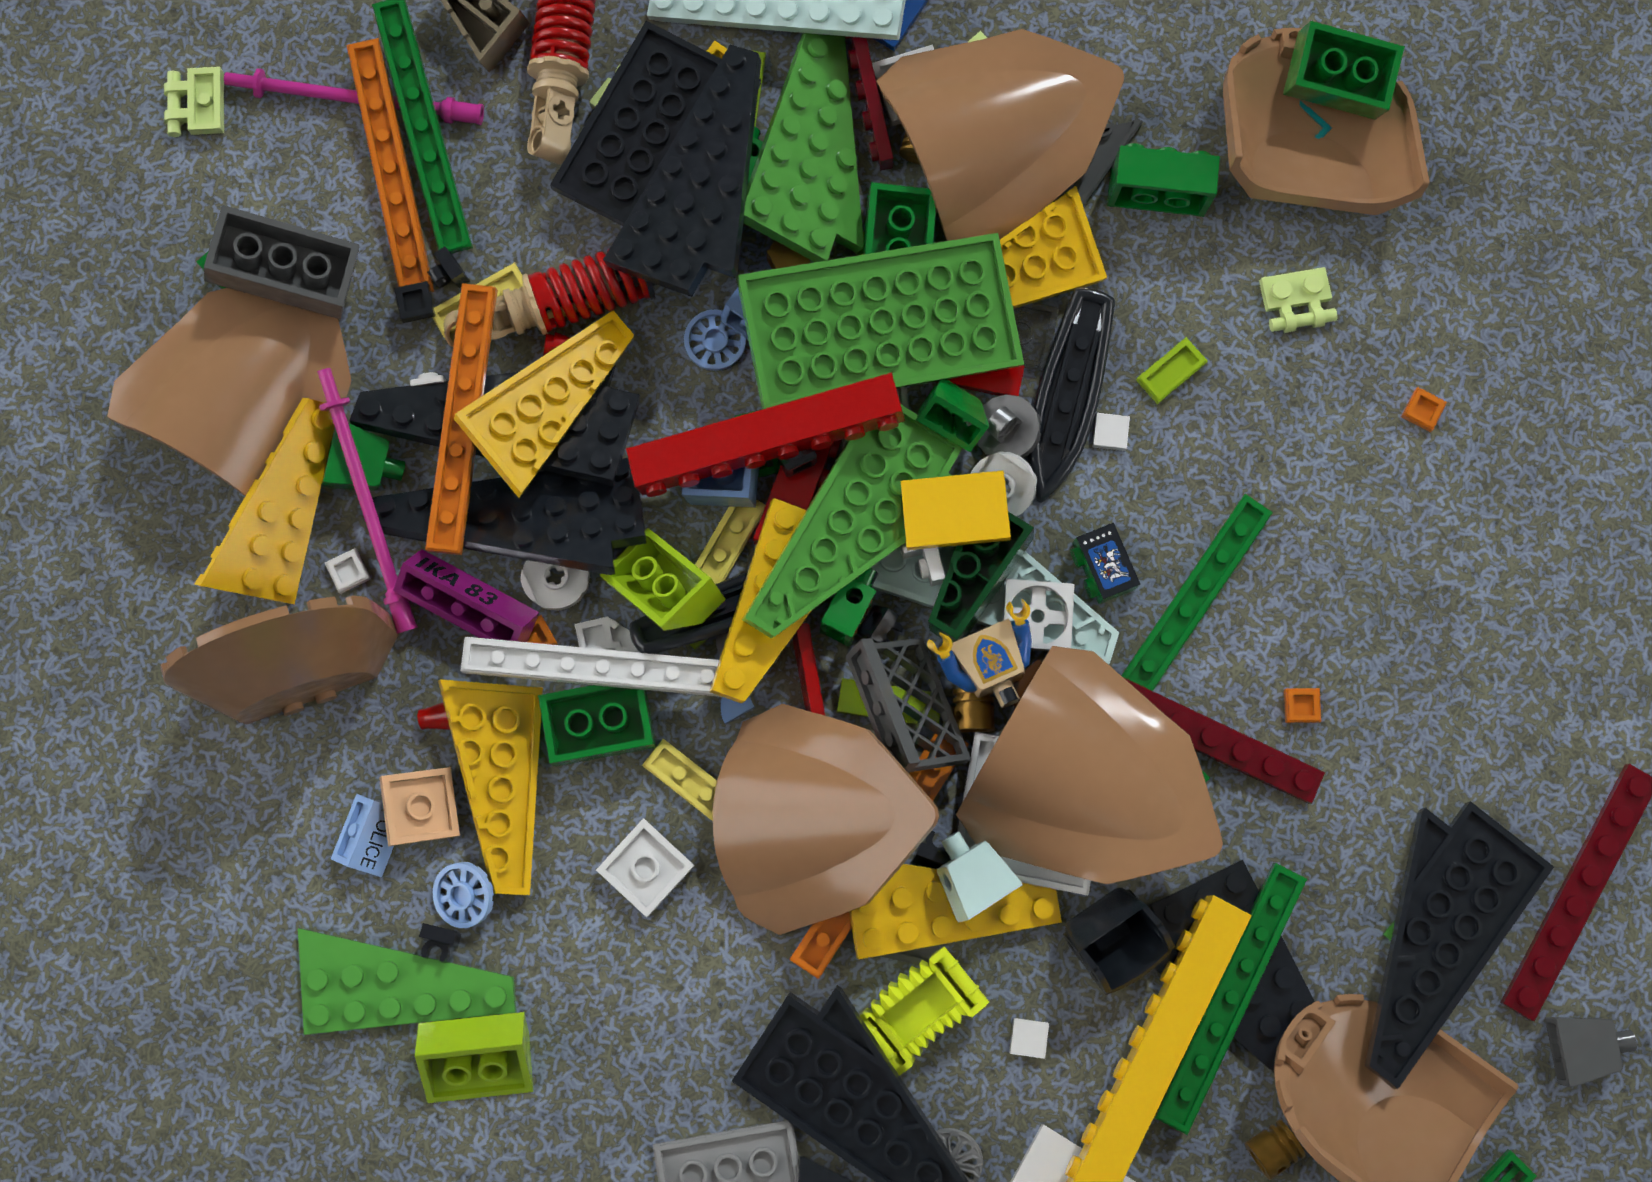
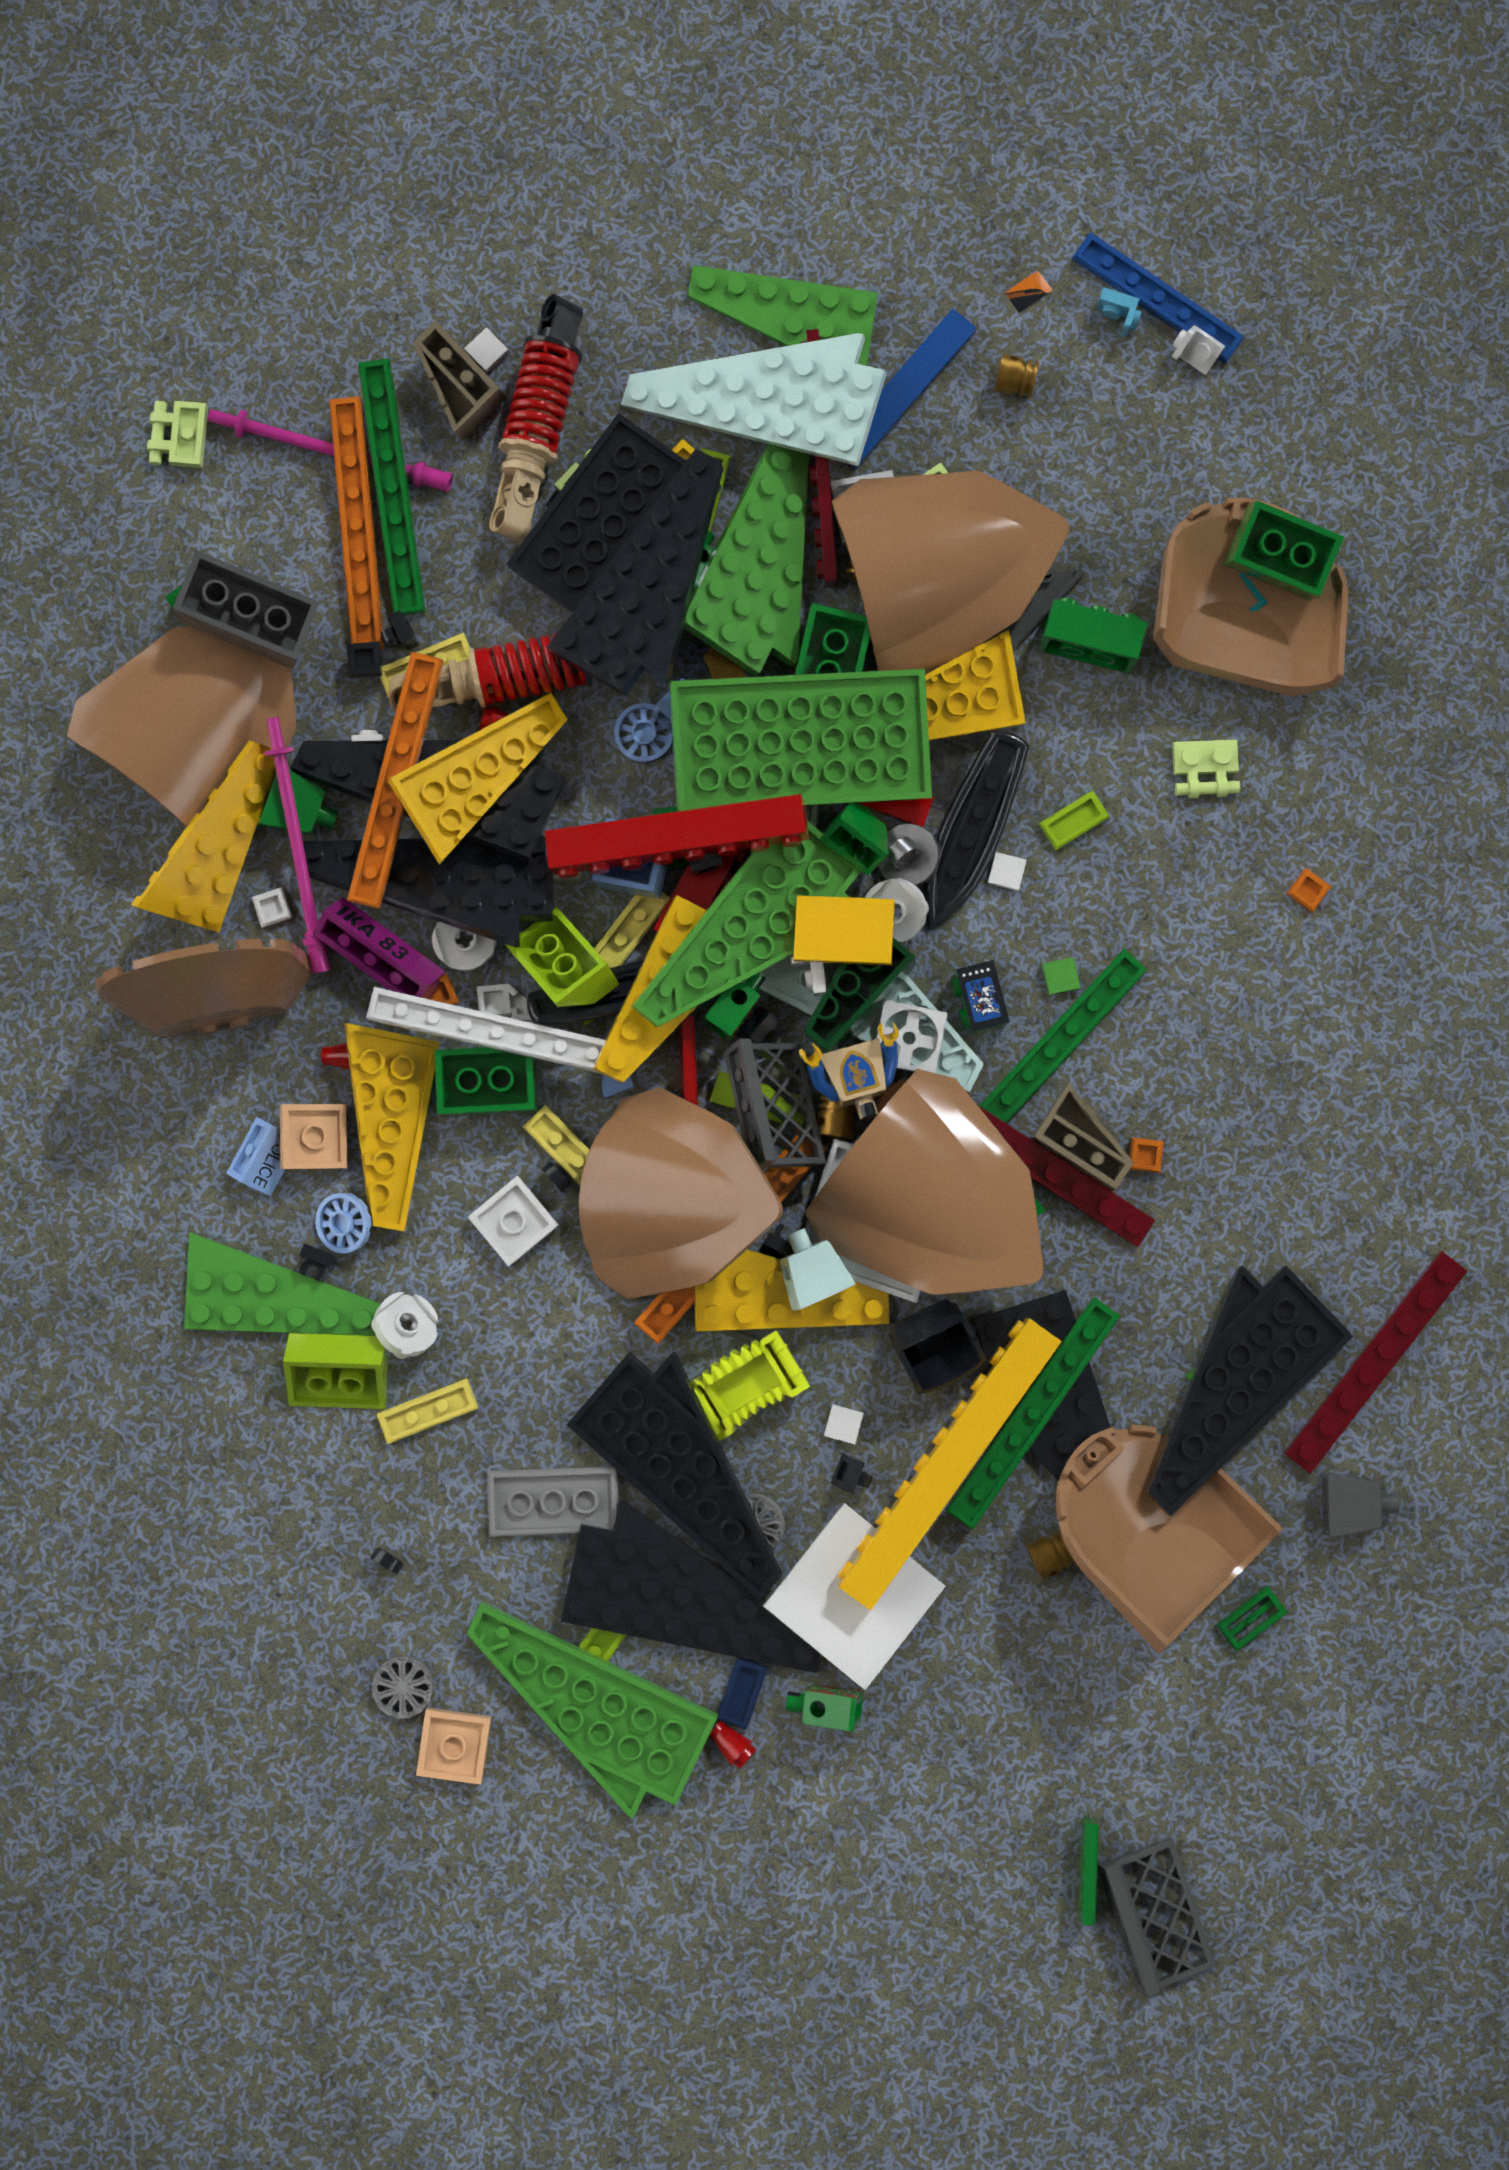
camera: 10 degrees right, 5 degrees up
(532, 1011) = (397, 1339): none -> white plate
(578, 1087) = (427, 1411): none -> light yellow tile
(685, 813) = (556, 1176): none -> black tile
(1044, 1092) = (850, 1474): none -> black tile
(1184, 531) = (1060, 976): none -> bright green tile
(1234, 698) = (1081, 1140): none -> dark tan wedge

